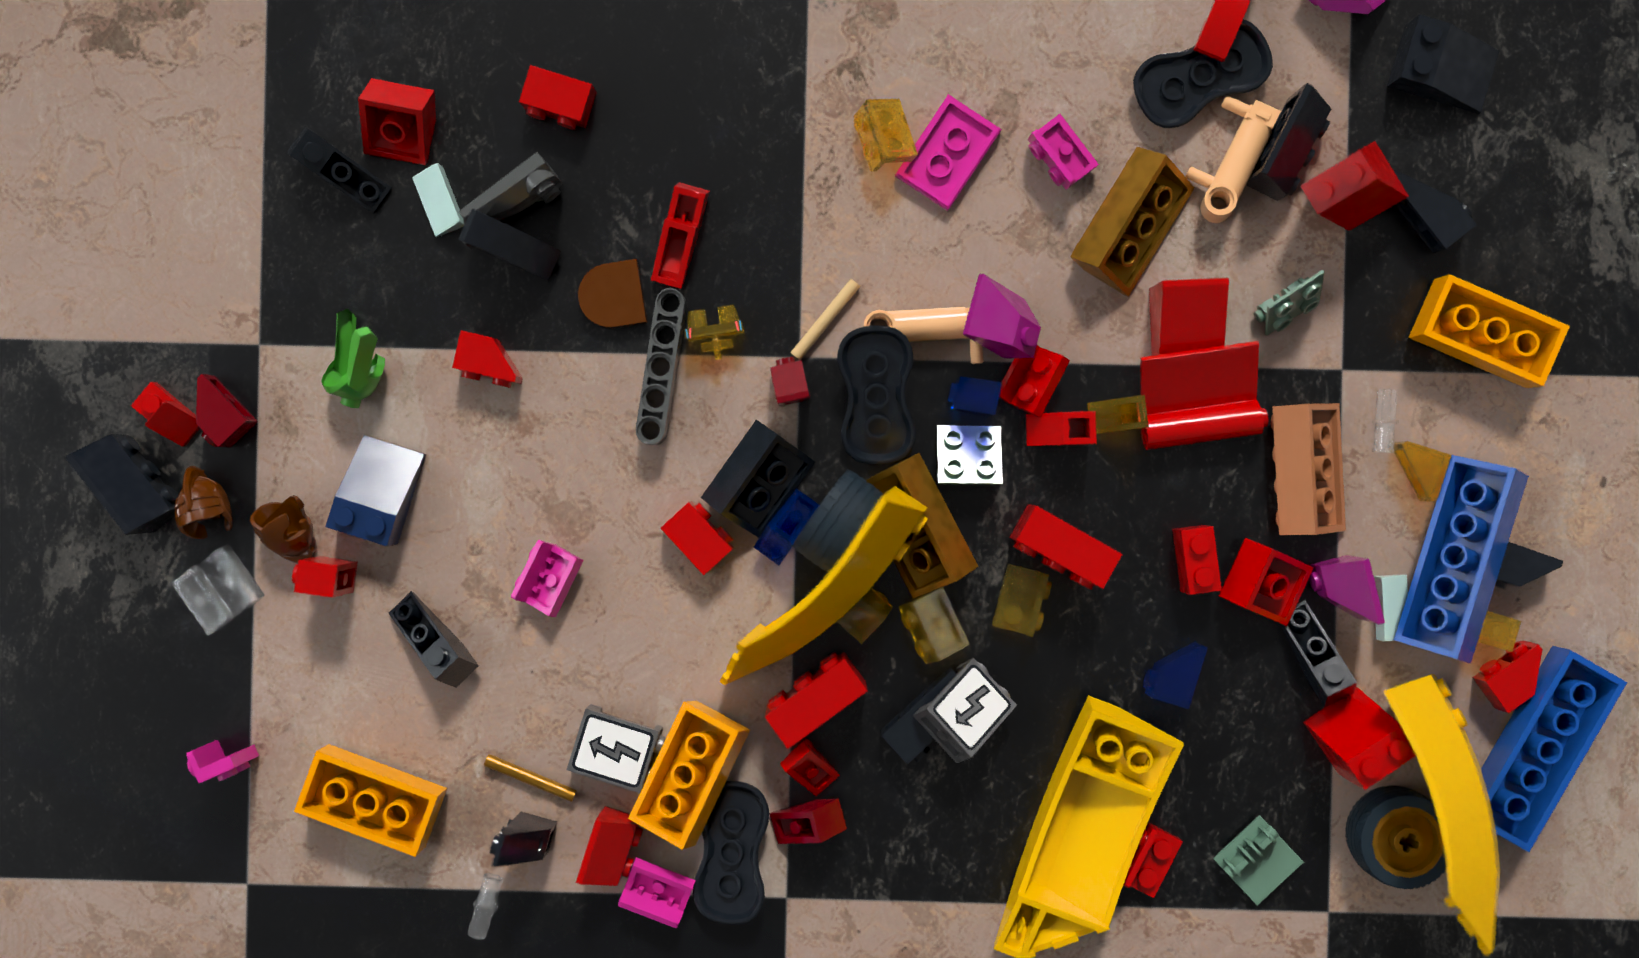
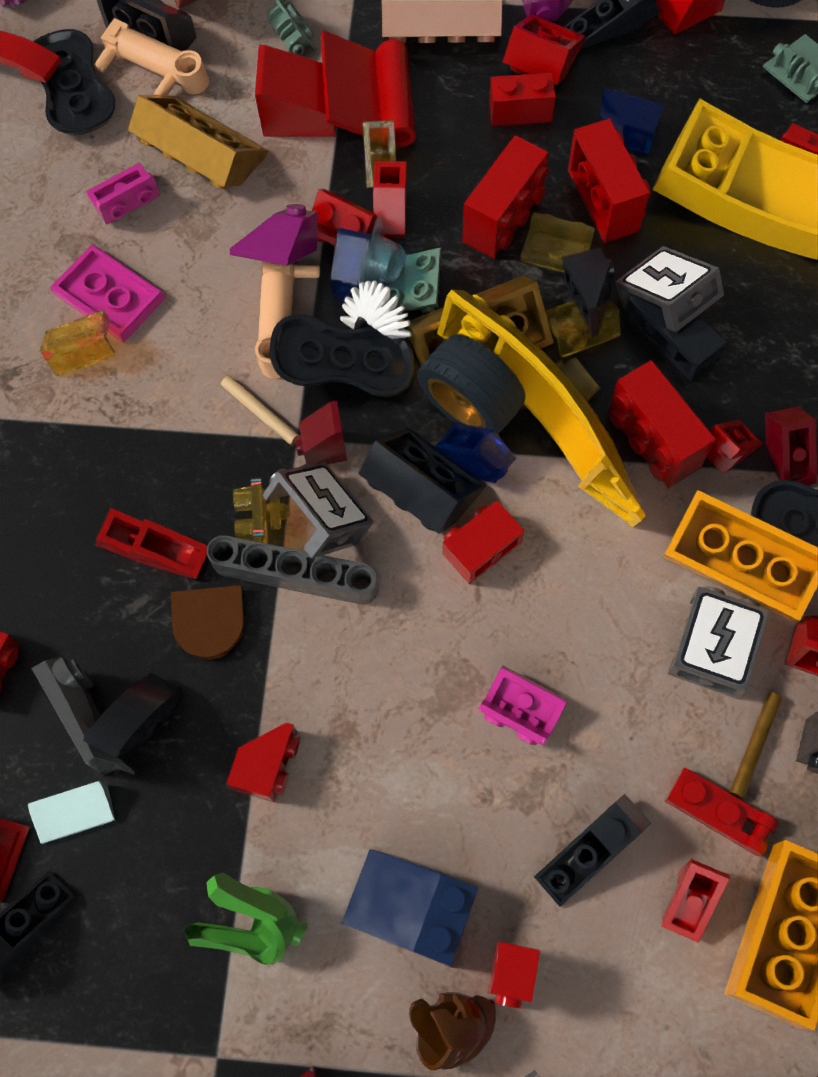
camera: 80 degrees left, 20 degrees down
(394, 721) = (694, 899): none -> red slope
(472, 745) = (721, 811): none -> red plate
(718, 389) = (326, 503): none -> panel
(926, 424) = (374, 305): none -> white hair
(966, 634) = (589, 284): none -> black slope
(983, 430) = (382, 259): none -> clear light blue piece
(1091, 650) = (608, 180): none -> red brick

